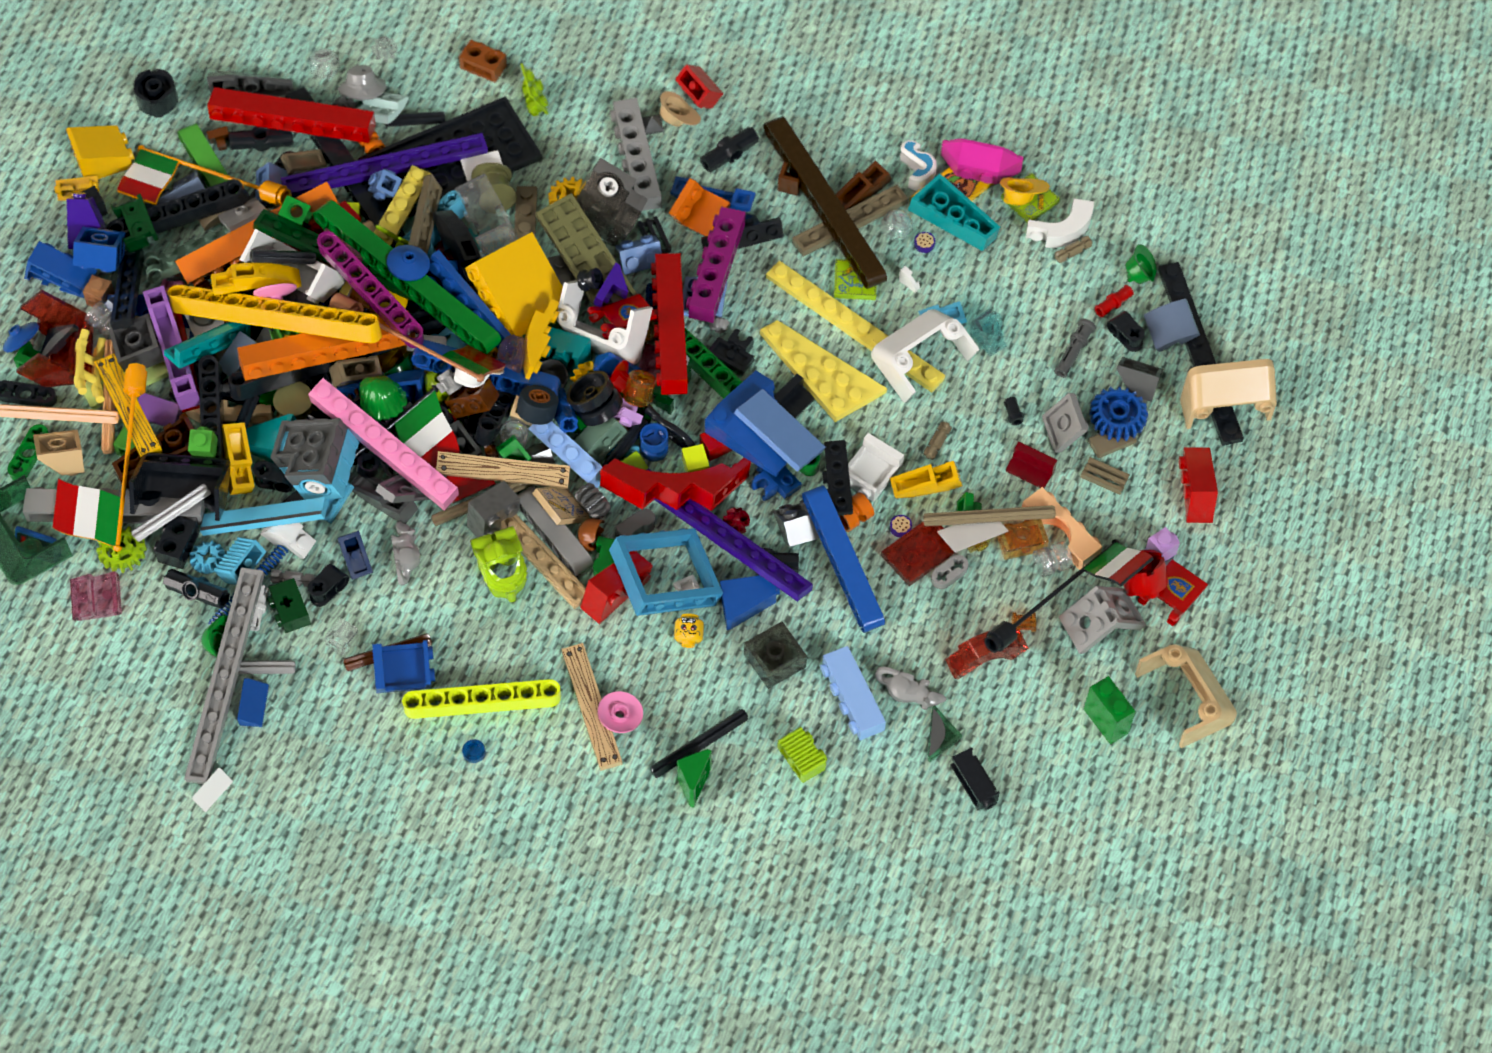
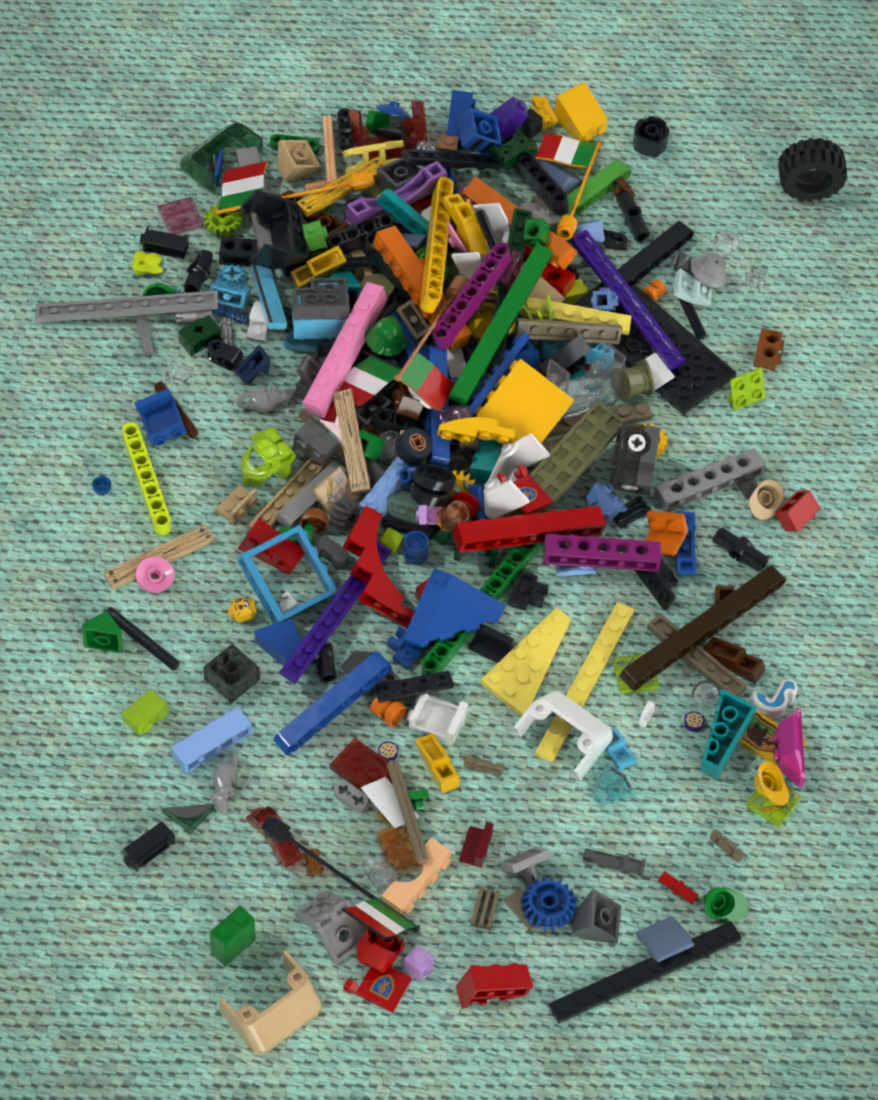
camera: 75 degrees right, 5 degrees down
(136, 619) = (164, 243): none -> black window
(157, 646) = (146, 263): none -> neon yellow plate
(170, 512) = (251, 233): axle -> none
(212, 789) = (32, 325): white sticker -> none
(250, 83) = (677, 186): dark grey wedge -> none
(252, 703) = (111, 332): blue slope -> none
(291, 115) = (653, 225): red brick -> none
(303, 161) = (617, 248): dark tan tile -> none
(408, 263) = (508, 324): blue dish -> none
(541, 611) = (237, 504): none -> tan bracket
(590, 279) = (545, 451): black wheel -> none
(613, 284) = (553, 475): dark purple slope -> none
(674, 433) = (428, 556): black piece -> none
(694, 458) = (406, 582): neon yellow brick -> none
(720, 325) = (552, 576): light grey piece -> none
(737, 519) = (356, 628): dark red gear -> none
(779, 430) = (443, 629): medium blue tile -> none
(1015, 416) = (531, 821): black pin -> none
(1066, 231) = (751, 841): white arch -> none
(1127, 331) = (646, 903): black piece -> none
(1229, 386) = (595, 990): windscreen -> none

